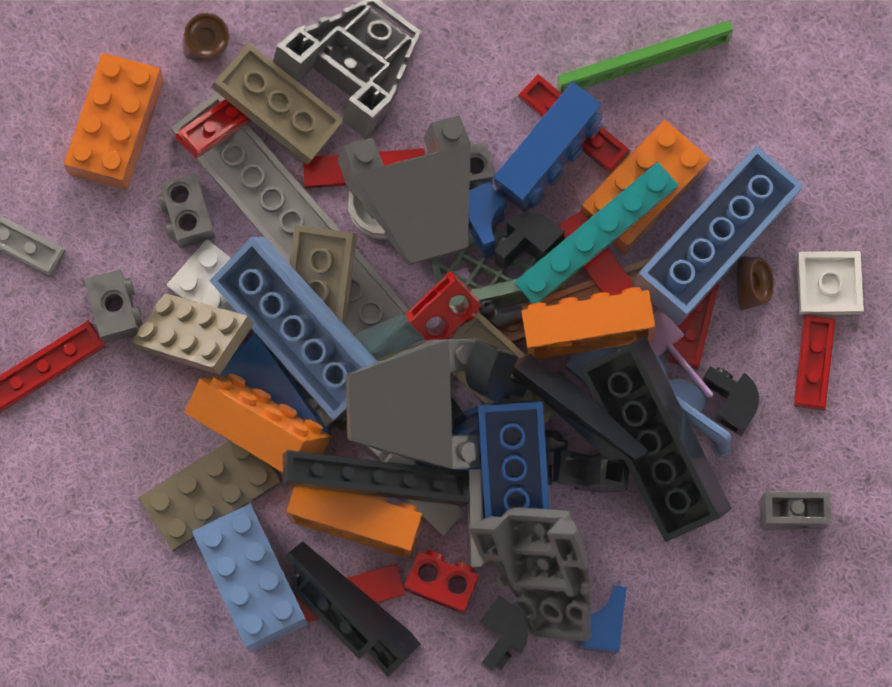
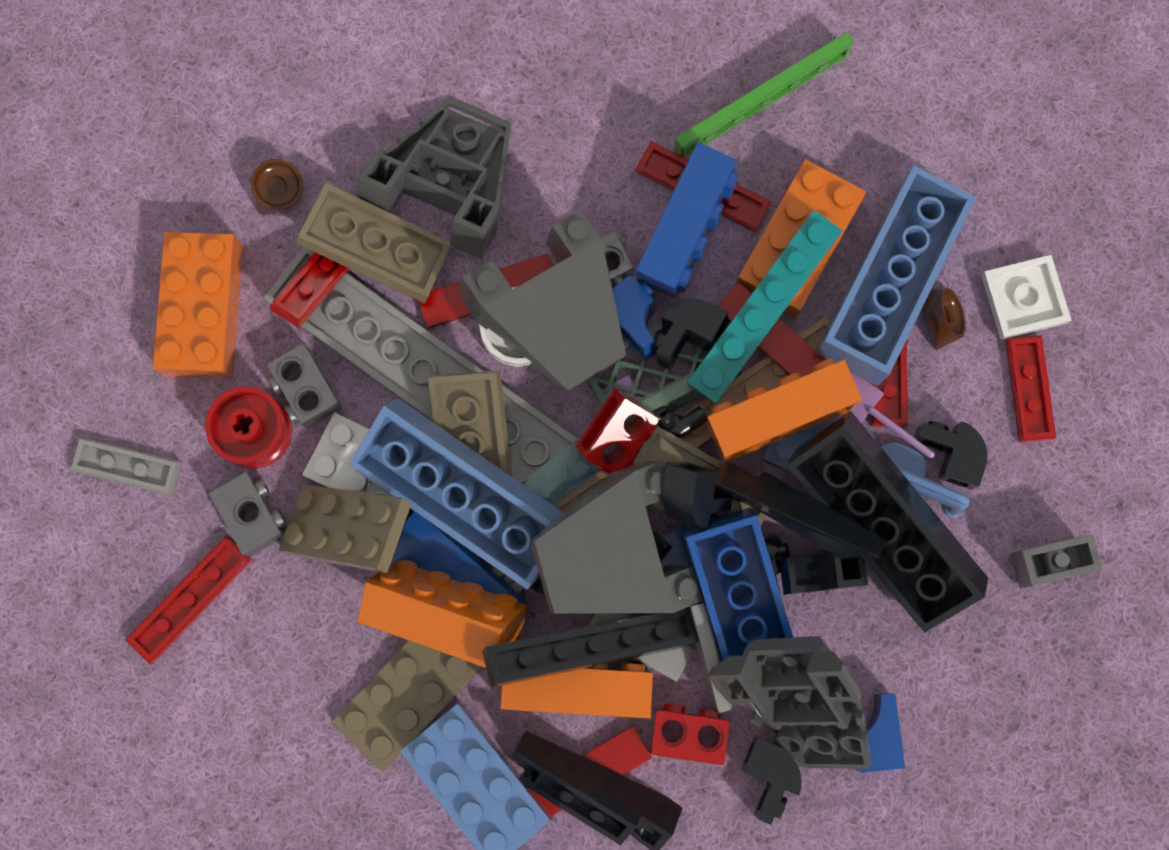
camera: 10 degrees left, 5 degrees up
(129, 216) = (252, 408): none -> red wheel

